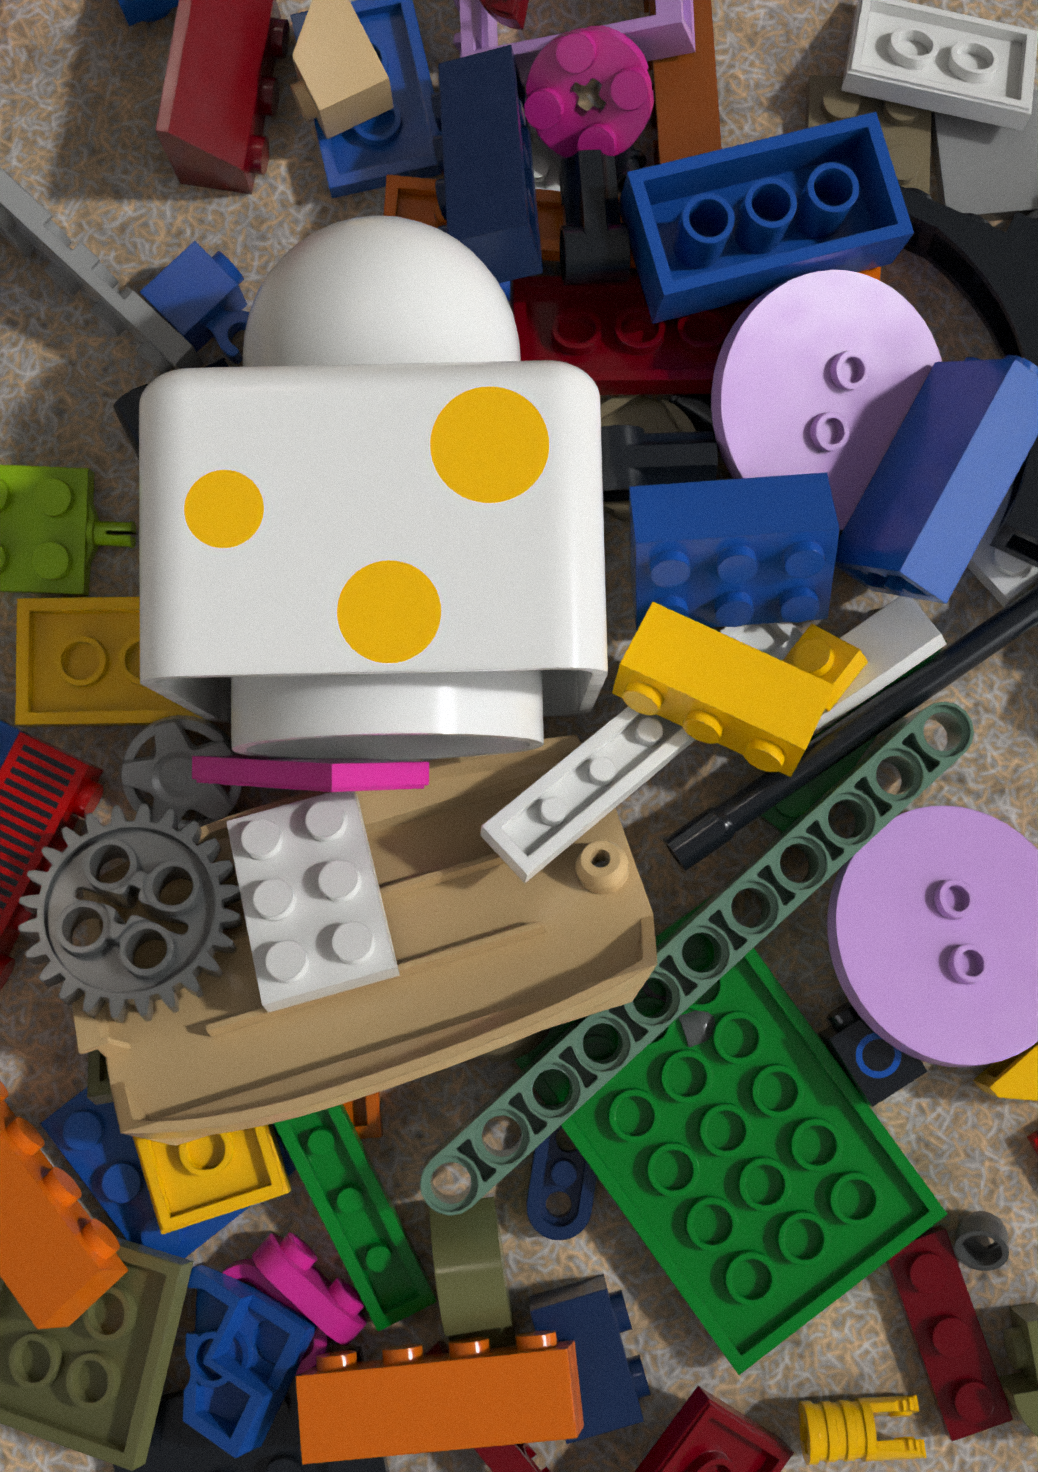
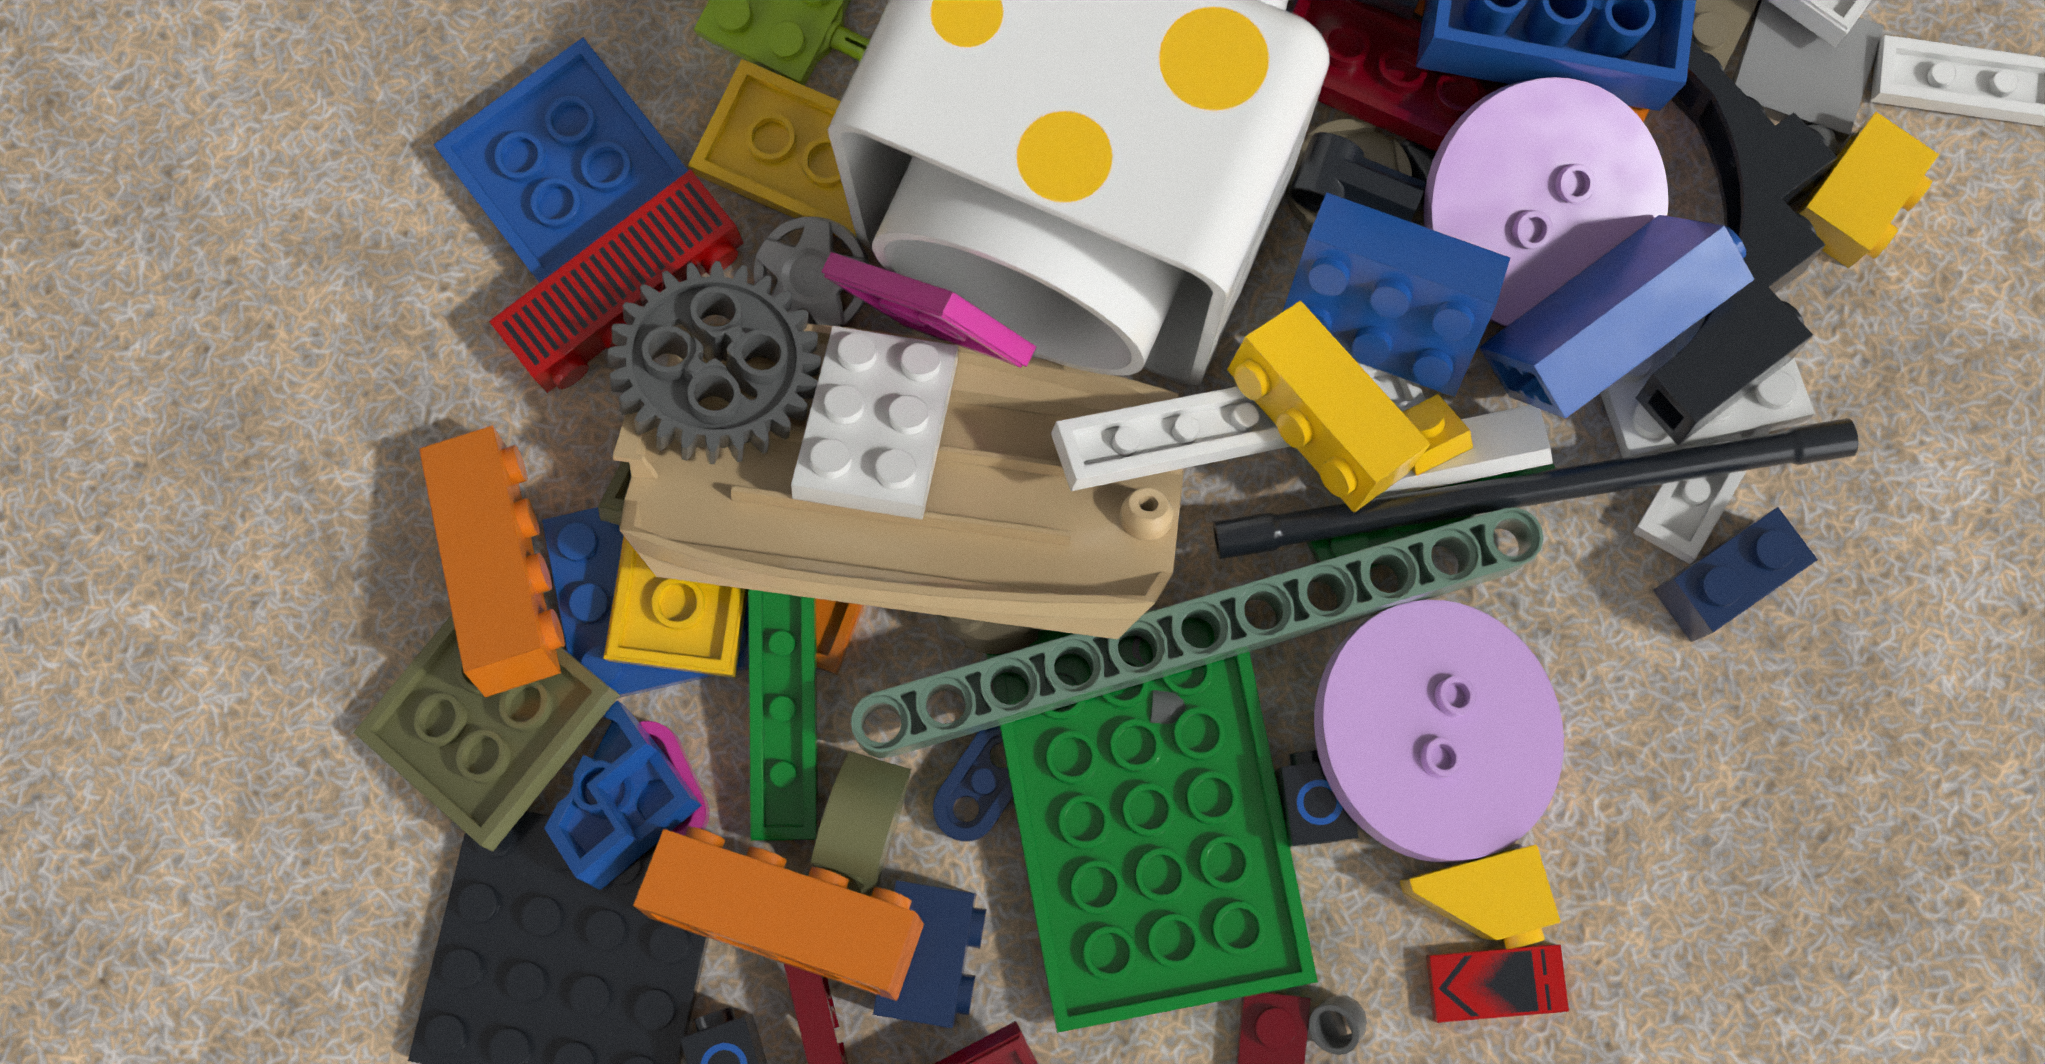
camera: 30 degrees right, 5 degrees down
(329, 1305) = (721, 799): dark pink plate -> none

